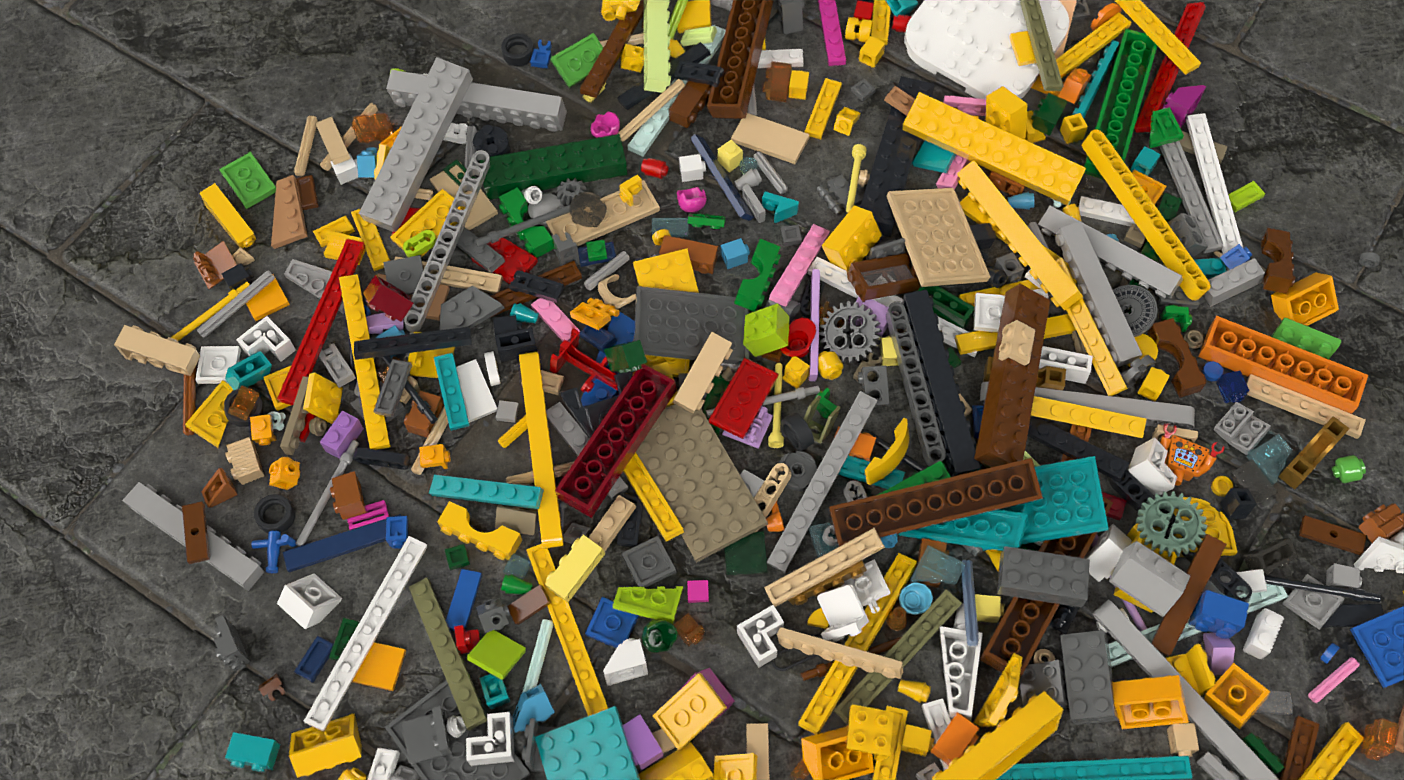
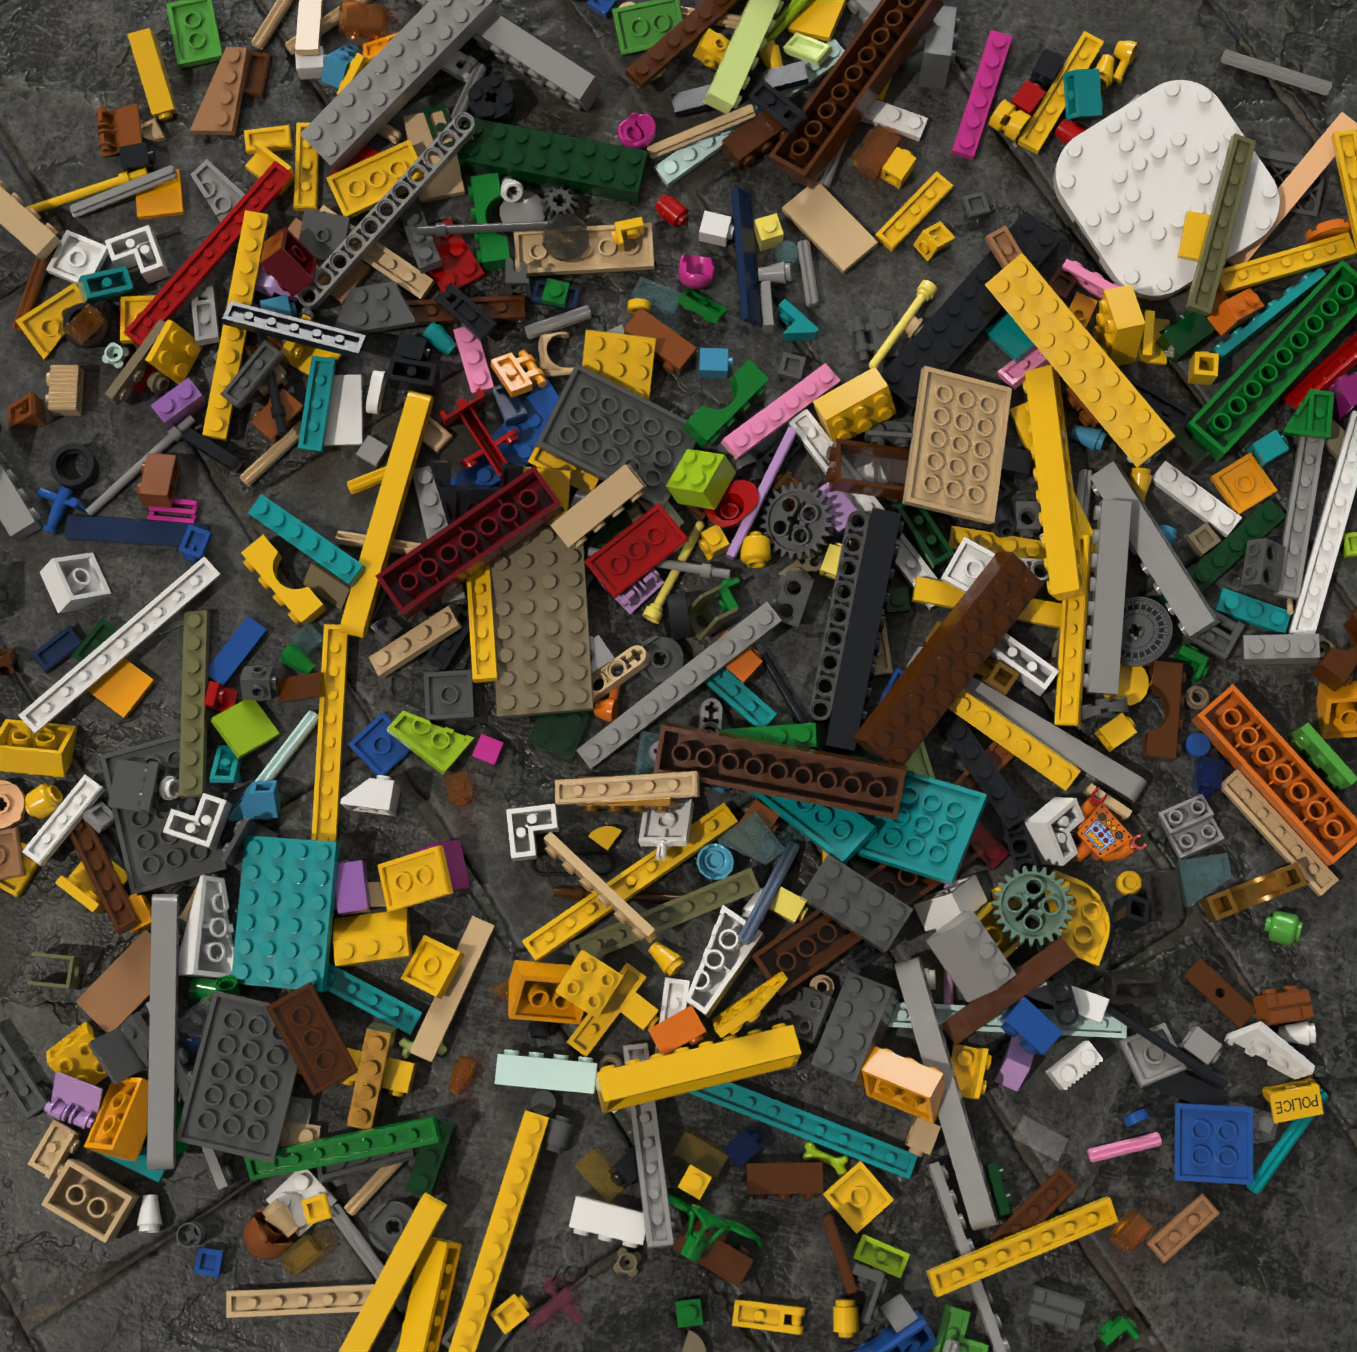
camera: 25 degrees right, 15 degrees up
(262, 429) = (96, 361): light orange bracket -> none
(284, 473) = (101, 424): light orange brick -> none
(419, 243) = (354, 202): lime beam -> none
(434, 456) = (269, 473): light orange bracket -> none
(457, 557) = (248, 600): dark green plate -> none
(574, 568) = (363, 670): light yellow brick -> none
(625, 356) = (519, 450): dark green brick -> none
(659, 636) = (422, 782): dark green hair -> none
(842, 612) = (627, 846): white bracket -> none
(871, 51) = (1011, 158): yellow brick -> none
(880, 468) = (747, 700): yellow slope -> none
(895, 622) = (685, 881): clear orange cone -> none
(1017, 342) = (968, 624): tan bracket -> none
(1145, 214) = (1225, 511): yellow beam -> none
(1236, 256) = (1303, 621): bracket -> none
(1236, 696) = (1002, 1118): light orange brick -> none

